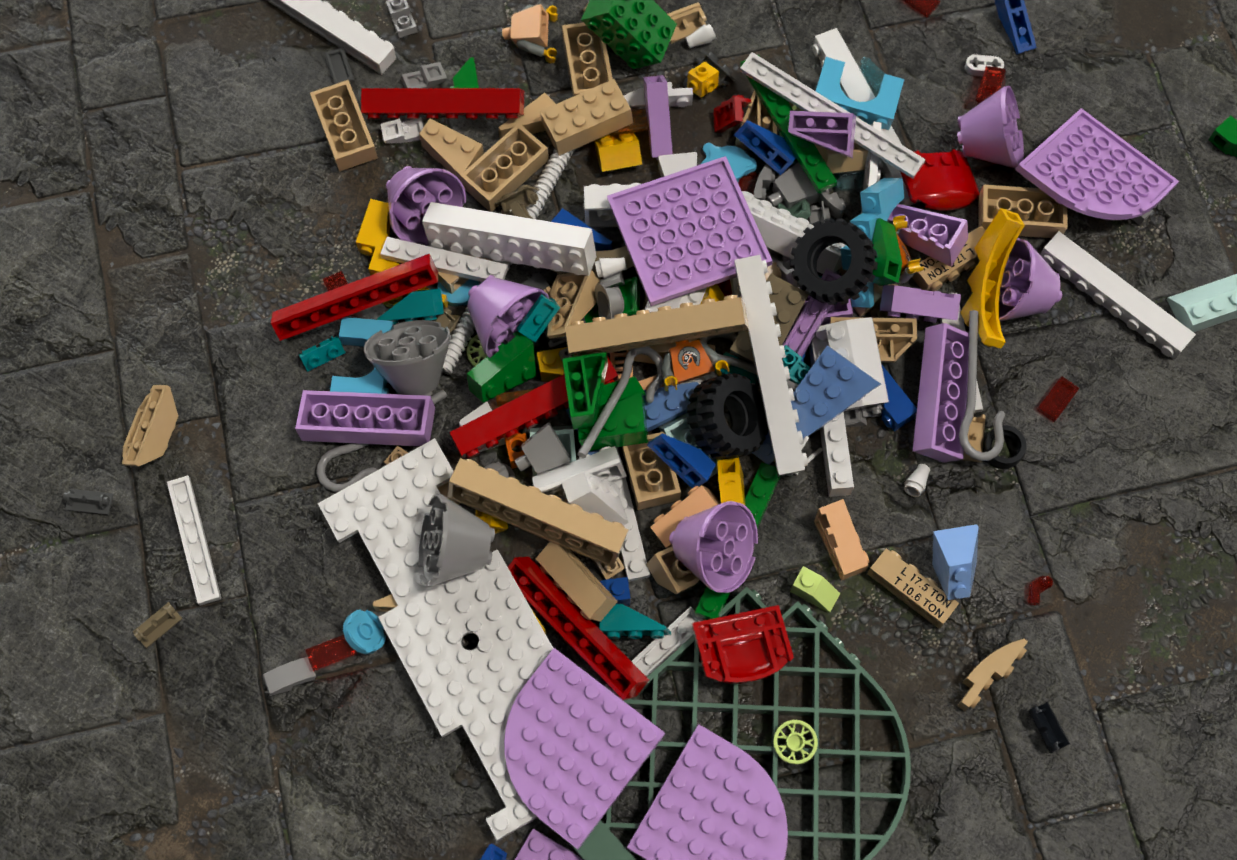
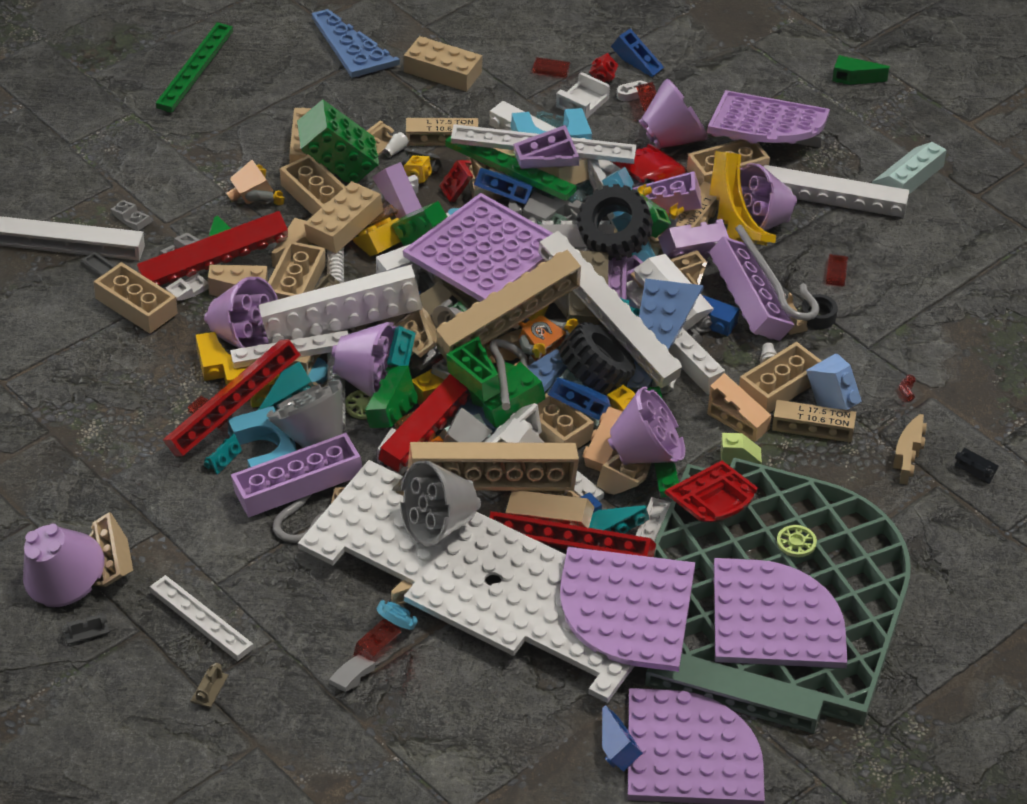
camera: 30 degrees left, 25 degrees down
(97, 422) = (60, 565): none -> lavender cone
(609, 266) = (432, 300): white cone -> none
(649, 161) = (418, 222): none -> green wedge
(756, 38) = (433, 130): none -> tan brick
(907, 519) = (779, 376): none -> tan brick
(927, 53) = (585, 94): none -> white panel
(967, 26) = (604, 68): none -> red brick

